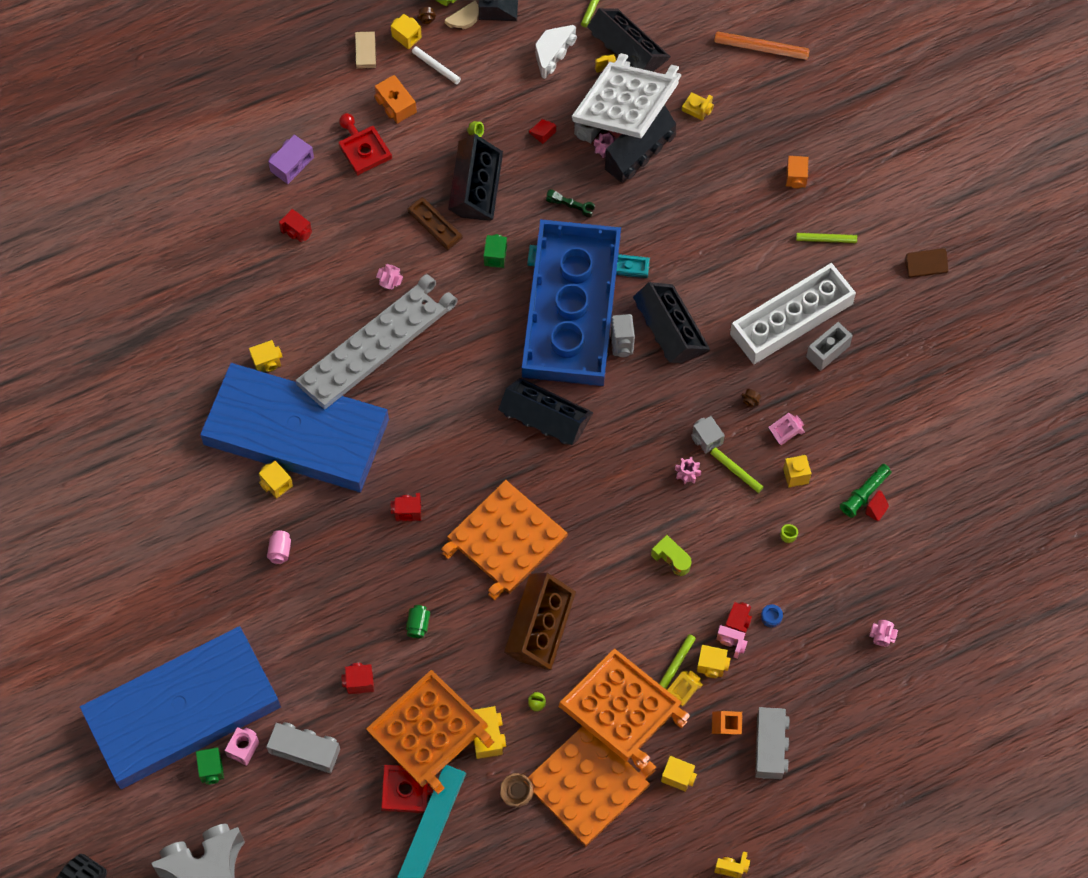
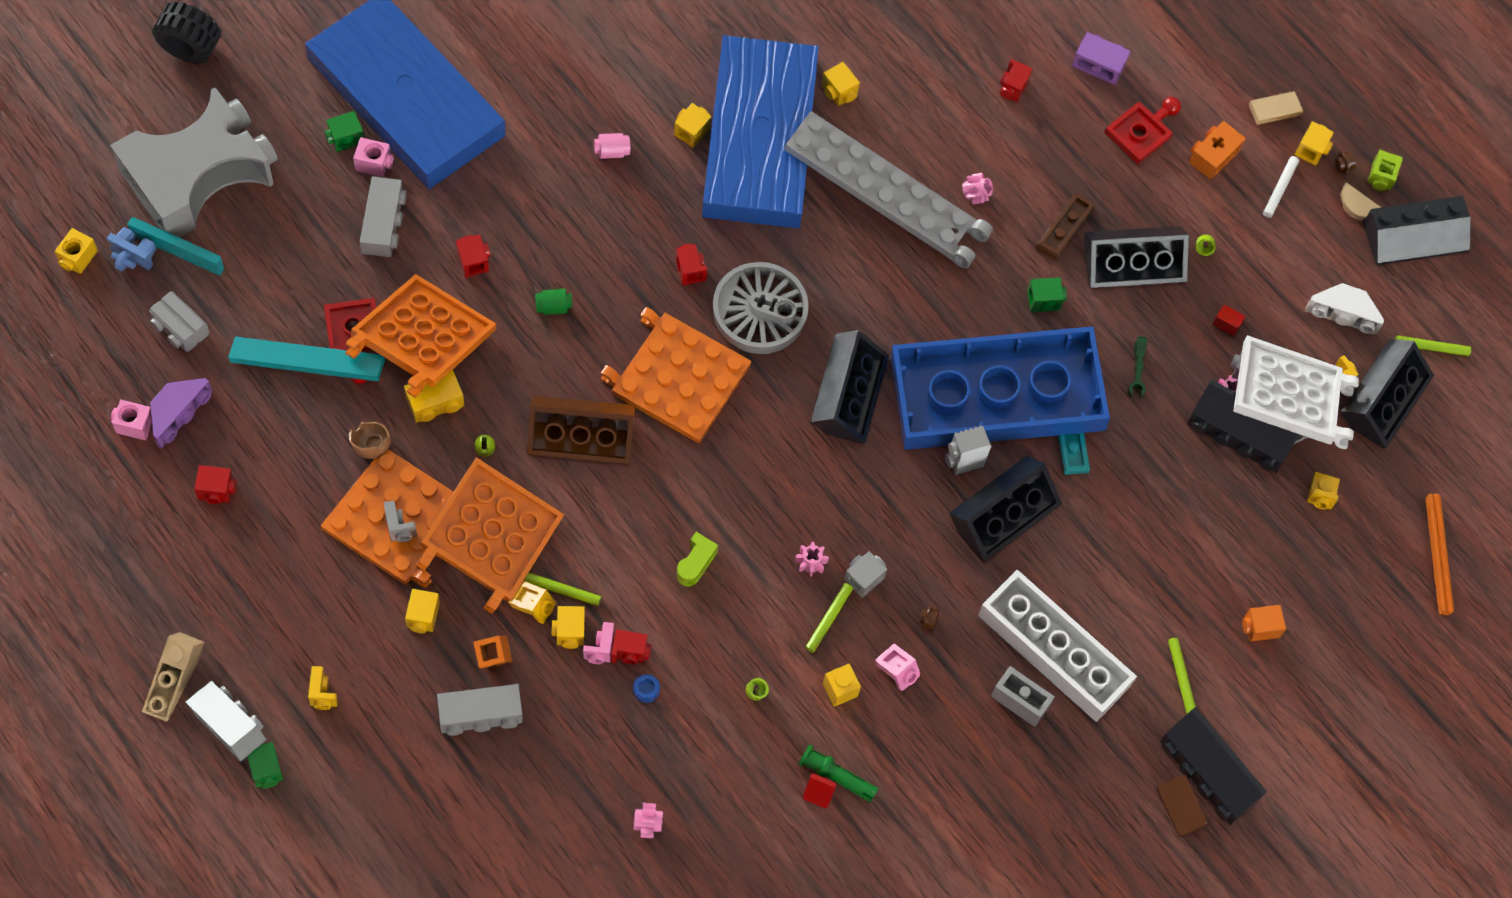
camera: 70 degrees right, 0 degrees up
(467, 468) = (747, 307): none -> light grey piece
(602, 780) = (397, 528): none -> light grey bracket
(904, 233) = (1212, 767): none -> black slope

